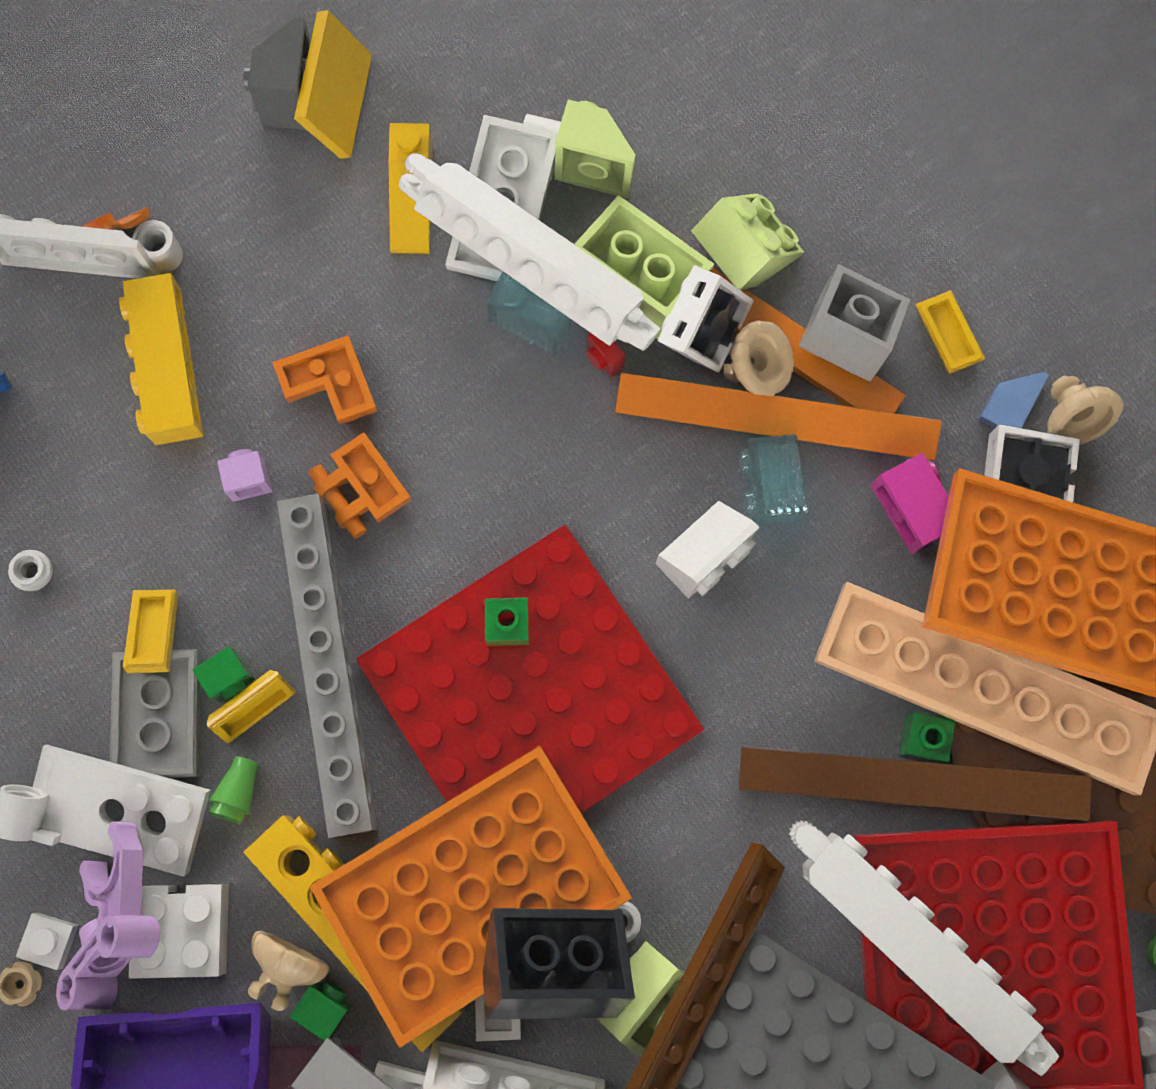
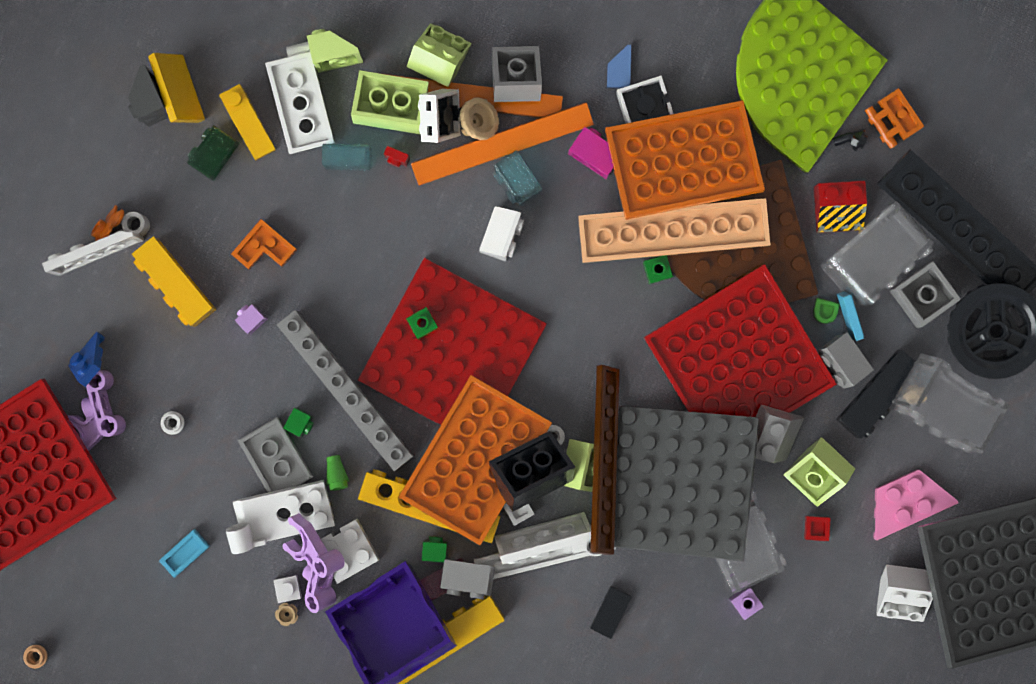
camera: 20 degrees left, 10 degrees up
(150, 631) = (250, 420): yellow tile -> none
(250, 706) = (319, 430): yellow tile -> none
(284, 967) = (406, 540): tan hair -> none
(333, 205) = (212, 152): none -> clear green brick
(370, 478) = (313, 286): orange plate -> none
(528, 251) = (329, 128): white hinge -> none
(916, 783) = (660, 296): reddish brown tile -> none
(921, 950) = (698, 374): white hinge -> none
(950, 332) = (569, 48): yellow tile -> none
(1083, 411) = (656, 58): tan hair -> none

